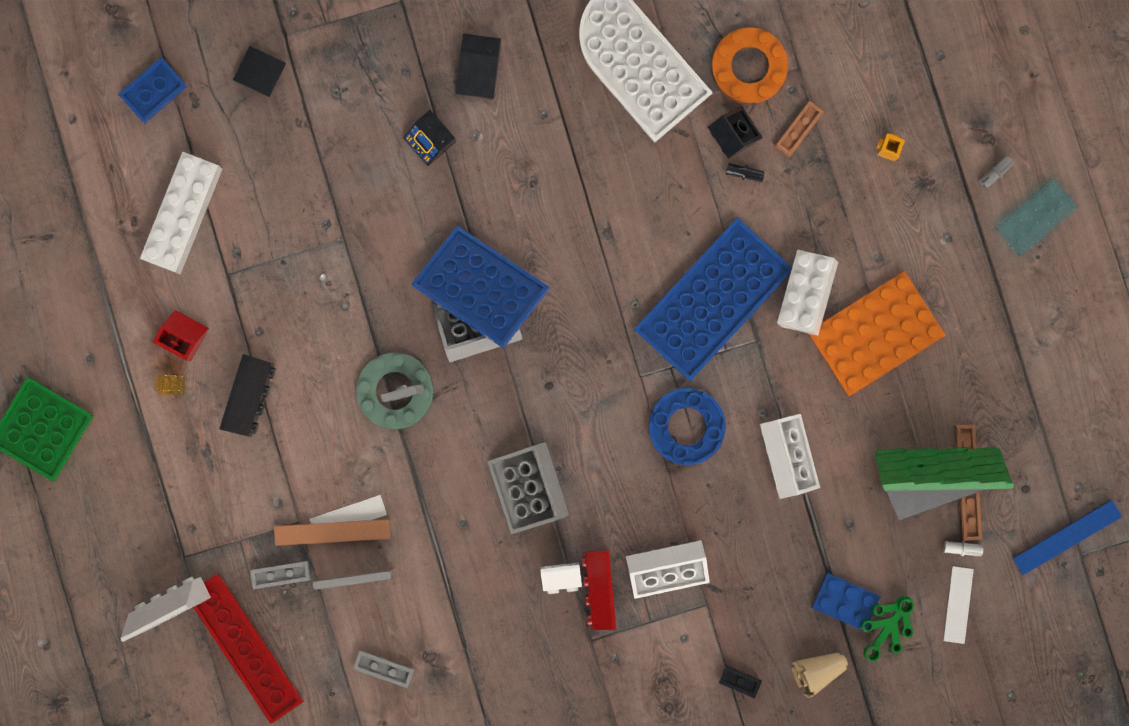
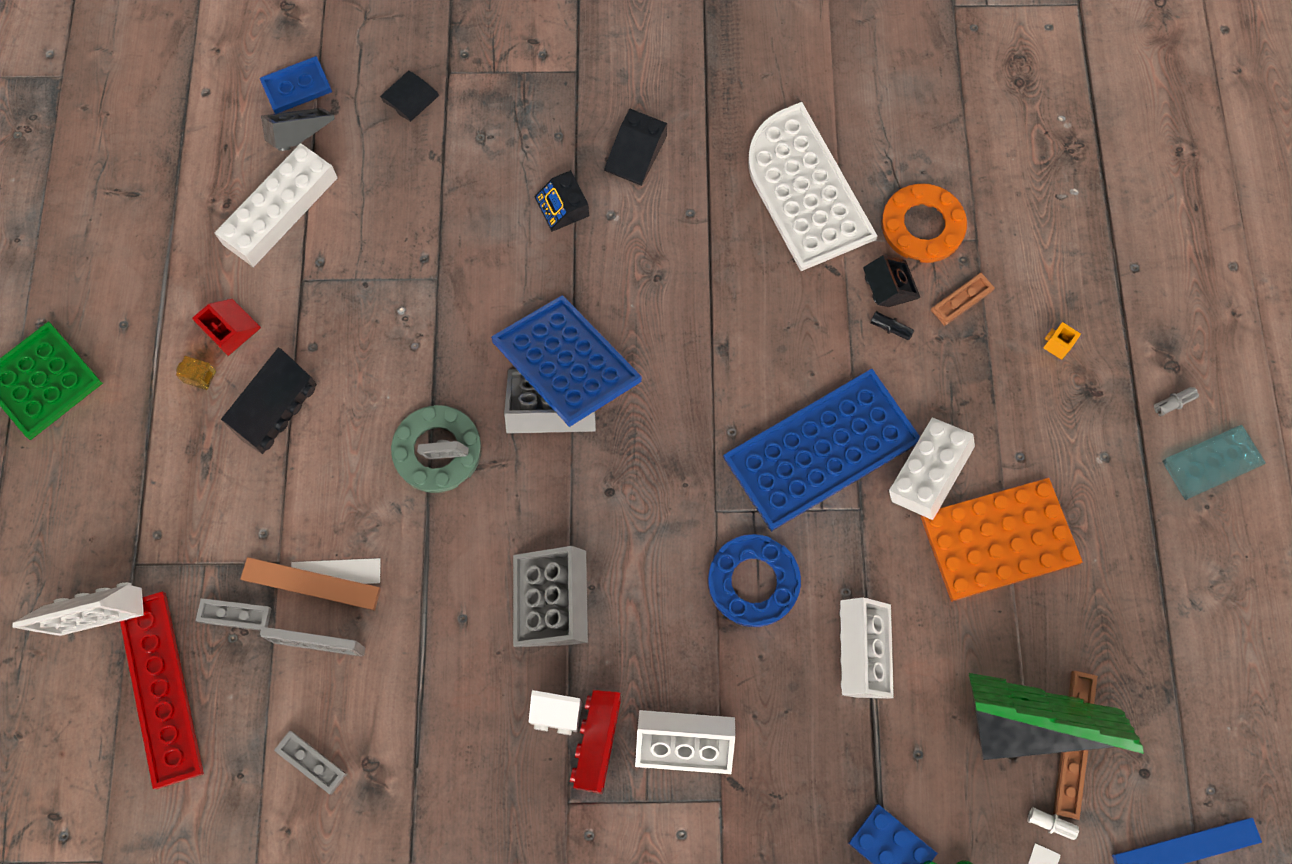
camera: 15 degrees right, 15 degrees down
(170, 135) = (293, 127): none -> dark grey slope

